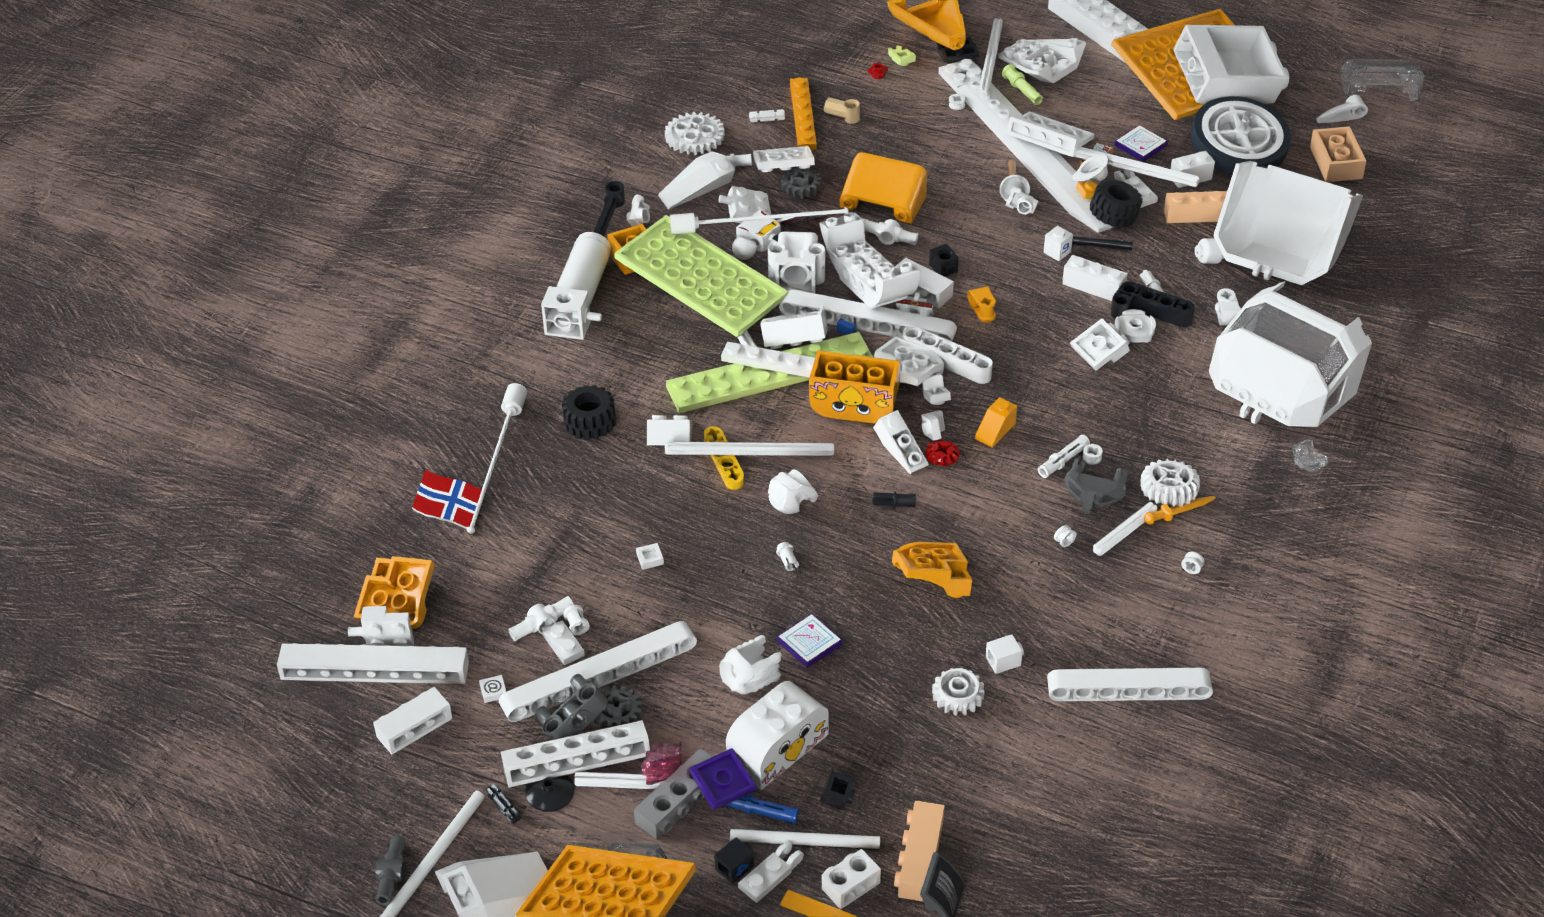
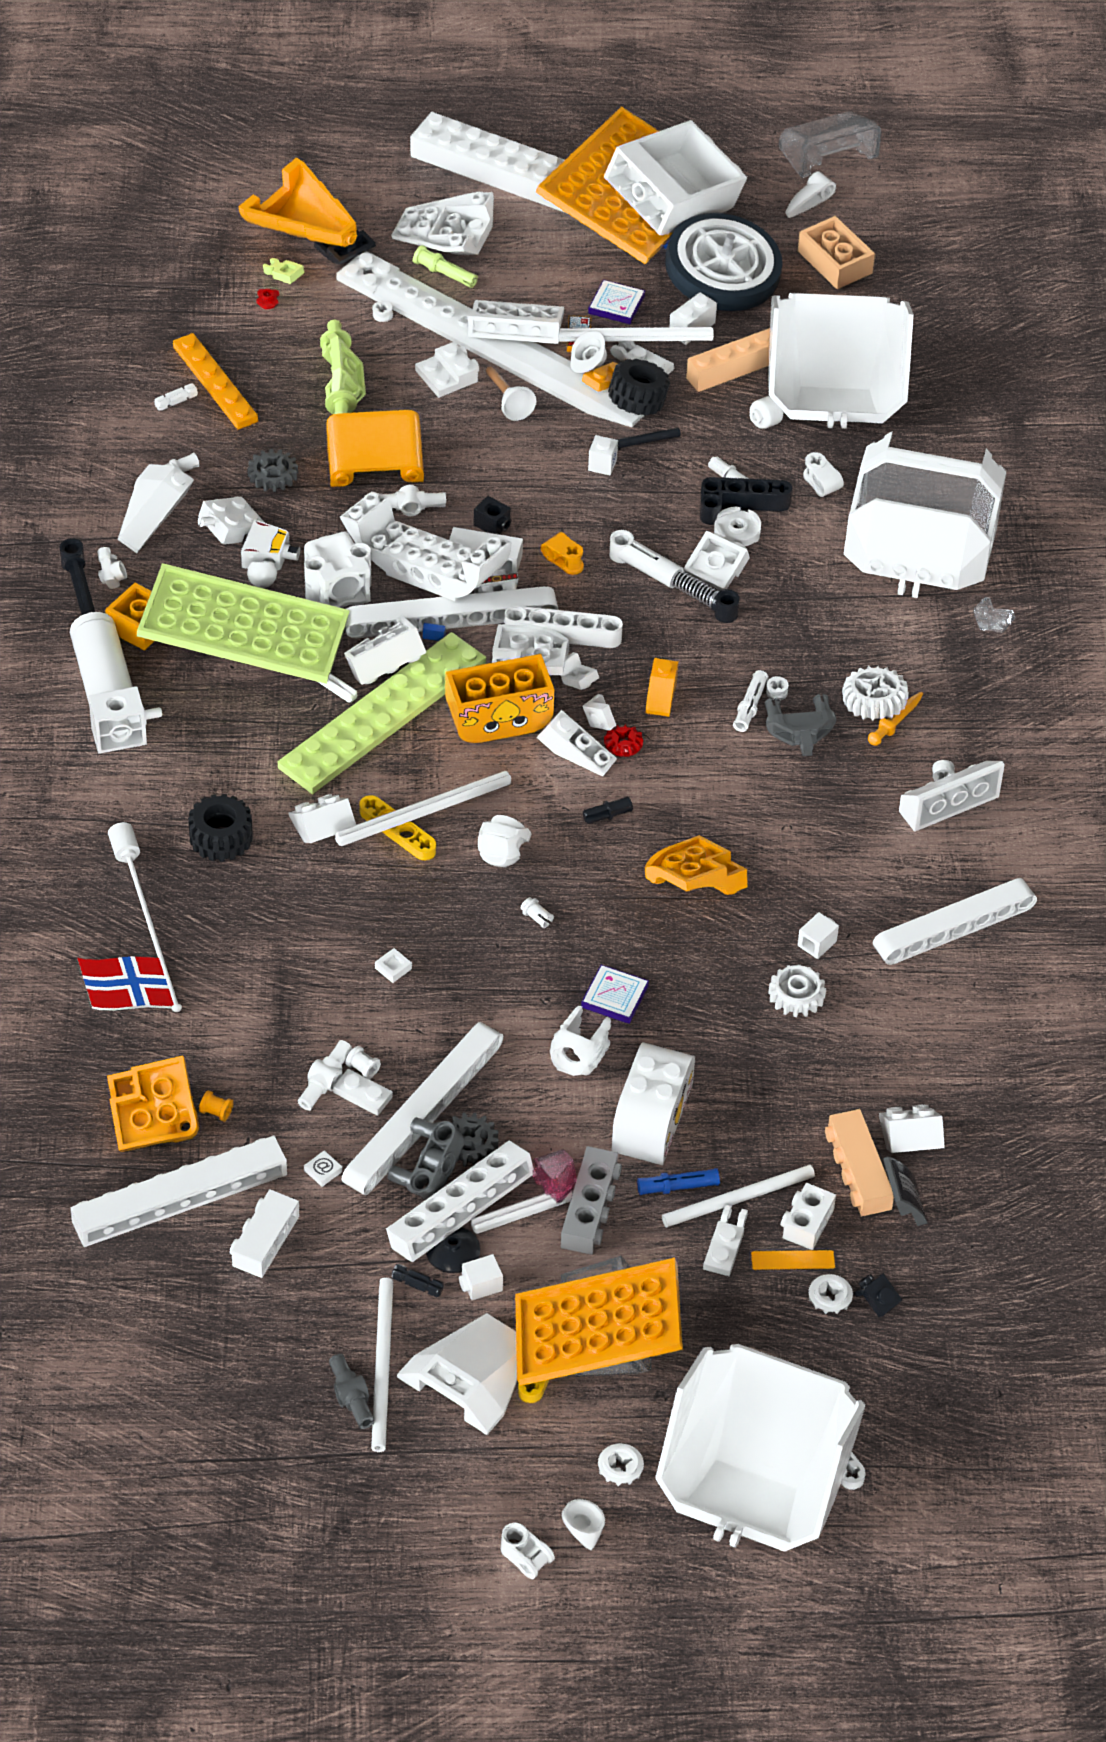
camera: 30 degrees left, 5 degrees up
(384, 628) = (171, 1149): white plate -> none
(445, 611) = (216, 1106): none -> light orange bush
(551, 821) = (481, 1277): none -> white brick
(688, 223) = (201, 565): white flag -> none
(694, 133) = (108, 446): white gear -> none
(722, 779) = (630, 1167): dark purple tile -> none
(734, 860) = (687, 1243): black brick -> none
(767, 359) = (384, 697): white plate -> none
(783, 158) = (238, 446): white plate -> none
(837, 790) = (745, 1135): black brick -> none
(847, 109) = (269, 360): tan piece -> none
(898, 130) = (348, 381): none -> yellowish green plate
(979, 153) = (448, 369): none -> white plate
(984, 840) = (912, 1129): none -> white slope
(990, 57) = (390, 242): white axle -> none
(1019, 200) = (533, 416): white plate -> none
(1059, 345) = (627, 550): none -> piece
(1065, 535) = (803, 788): white bush -> none
(1092, 277) = (666, 485): white brick -> none
(1123, 530) = (855, 760): white axle -> none
(1187, 583) = (952, 794): none -> white slope

